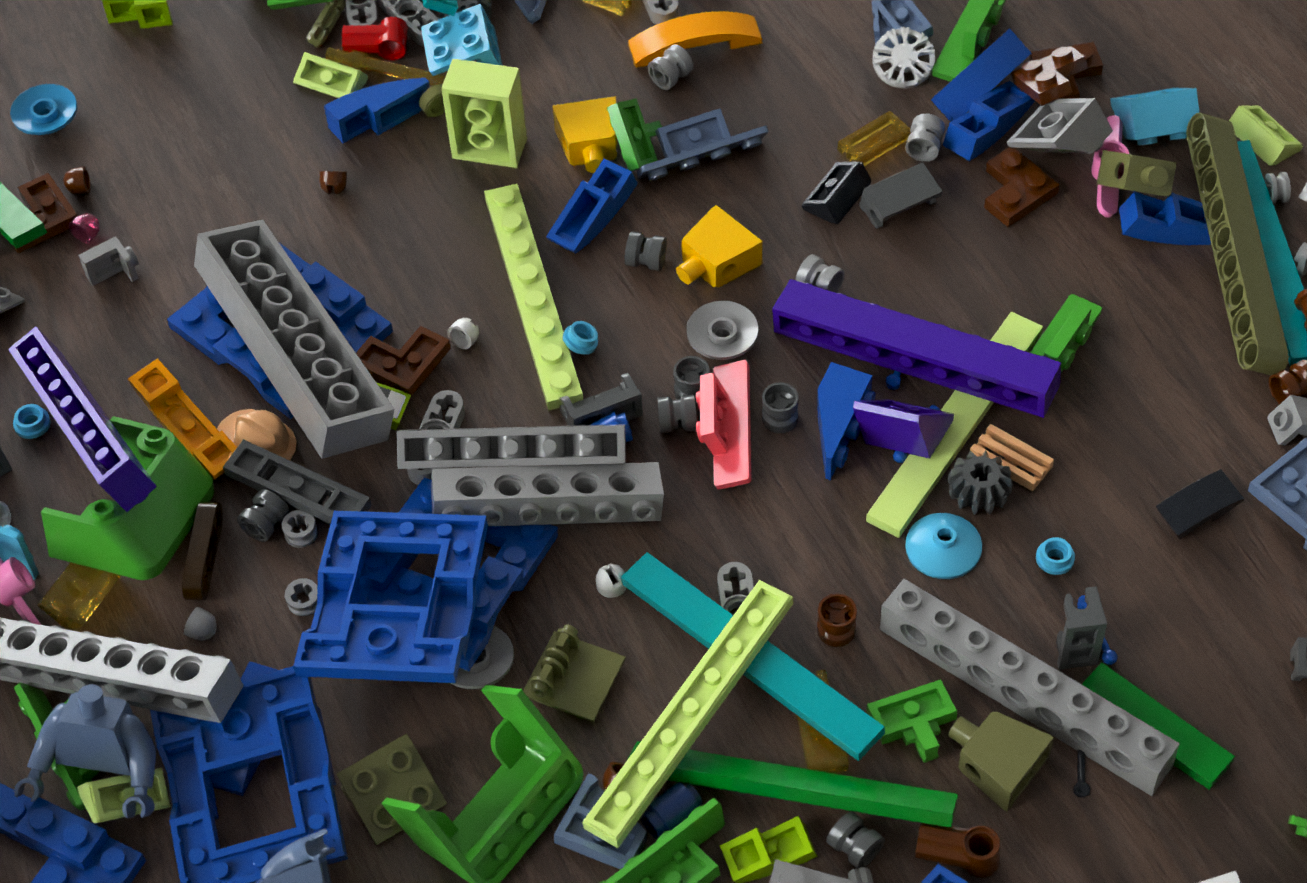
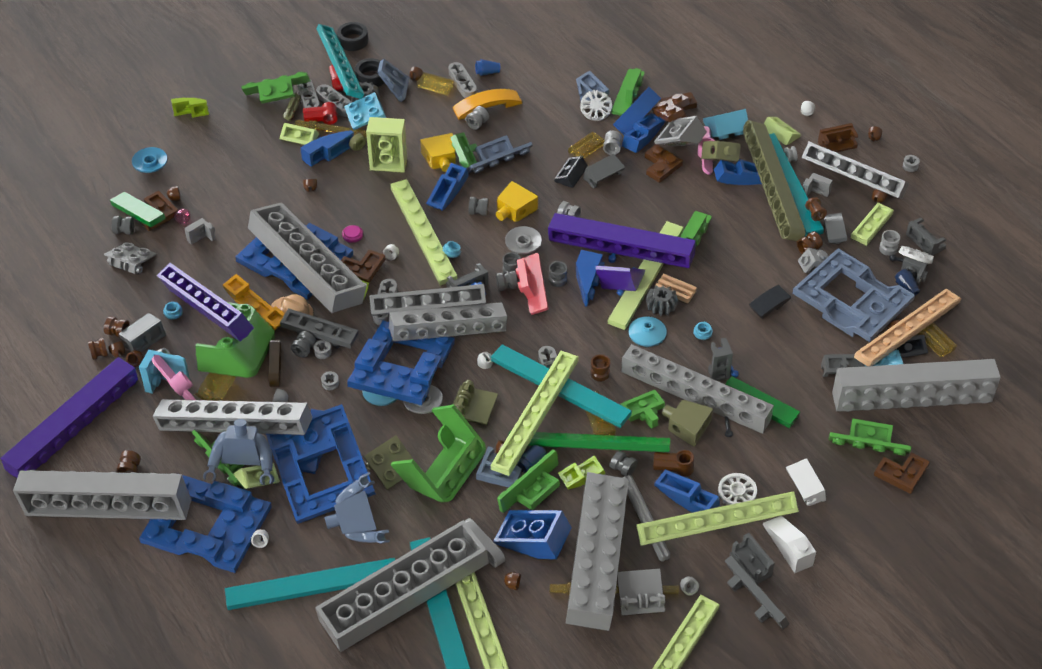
camera: 10 degrees left, 5 degrees down
(393, 639) = (381, 389): blue piece -> none
(397, 288) = (352, 233): none -> dark pink piece

